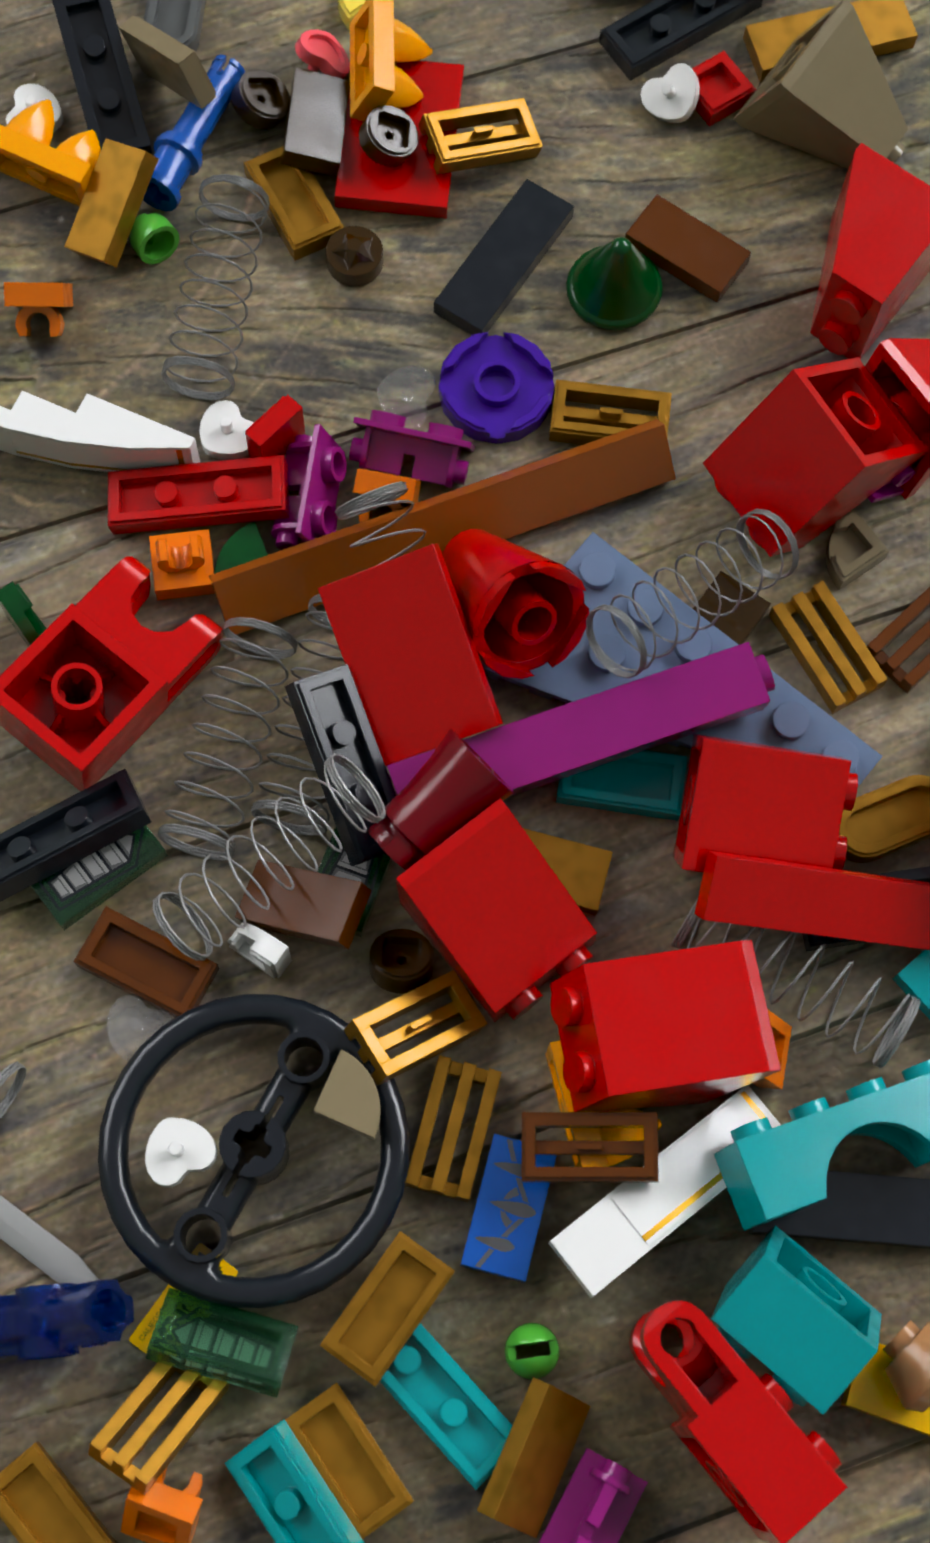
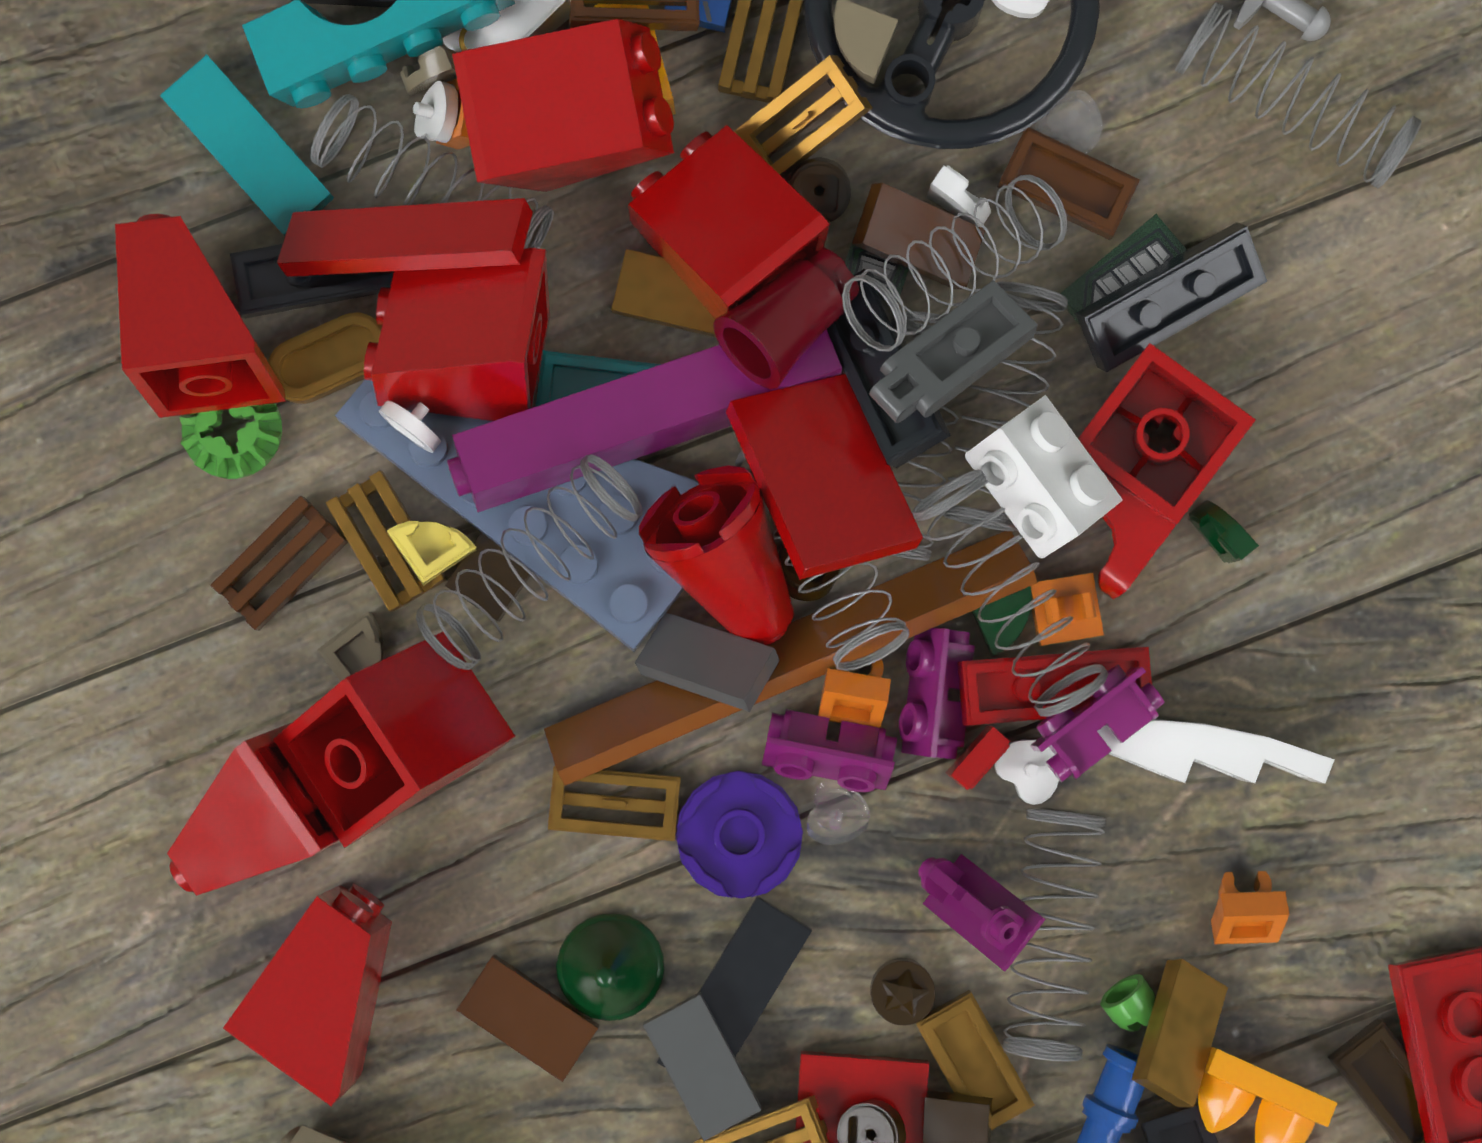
camera: 170 degrees left, 15 degrees up
(189, 434) = (1115, 704): none -> magenta hinge
(195, 646) = (1043, 477): none -> white bracket
(278, 756) = (953, 354): none -> dark grey hinge
(281, 304) = (978, 908): none -> magenta hinge
(287, 600) = (978, 480): none -> light grey piece
(523, 514) = (707, 661): none -> dark grey tile
(534, 196) = (702, 1066): none -> dark grey tile
(786, 631) = (430, 547): none -> light yellow tile
(793, 1046) = (437, 112): none -> white piece
(794, 1091) = (432, 67): none -> dark tan tile
(811, 728) = (410, 424): none -> white piece

